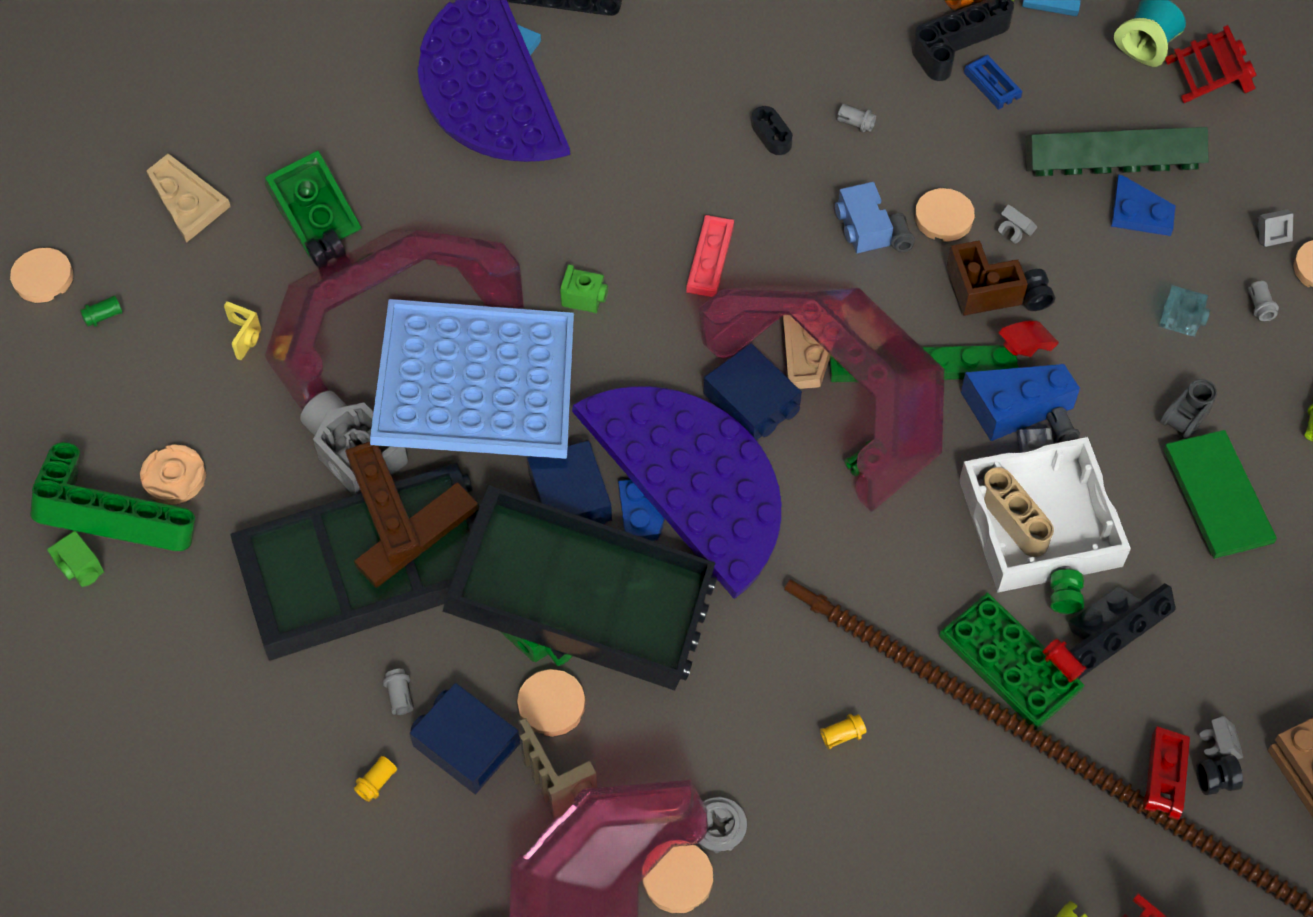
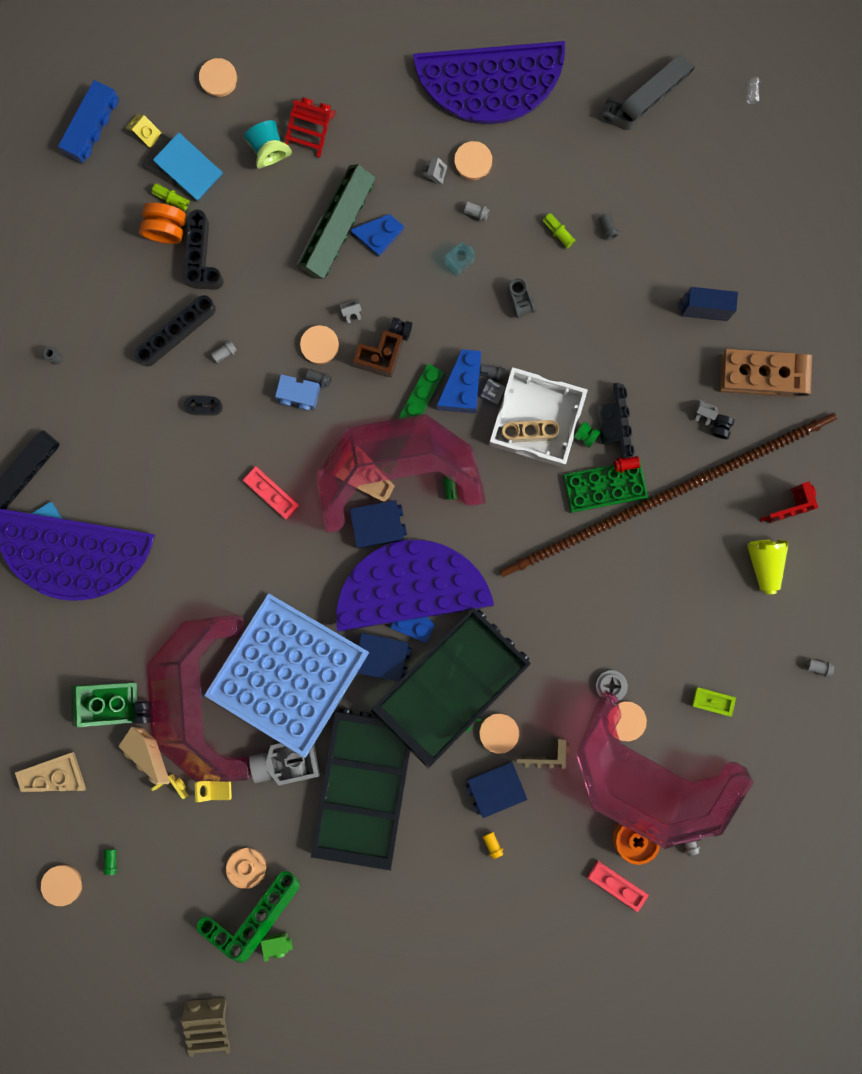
camera: 60 degrees left, 25 degrees up
(267, 382) = (213, 791): none -> light yellow bracket
(270, 273) = (144, 751): none -> tan slope
(382, 501) = (341, 767): reddish brown tile -> none
(398, 690) = (450, 809): light grey pin -> none
(428, 525) = (370, 757): reddish brown tile -> none
(583, 290) = (255, 586): bright green brick -> none
(843, 731) = (597, 595): yellow pin -> none
(845, 55) = (179, 321): none -> black beam
(988, 83) = (242, 263): blue tile -> none
(1027, 337) = (430, 355): red slope -> none
(1167, 772) = (709, 451): red plate -> none
(1219, 494) = (576, 318): green tile -> none

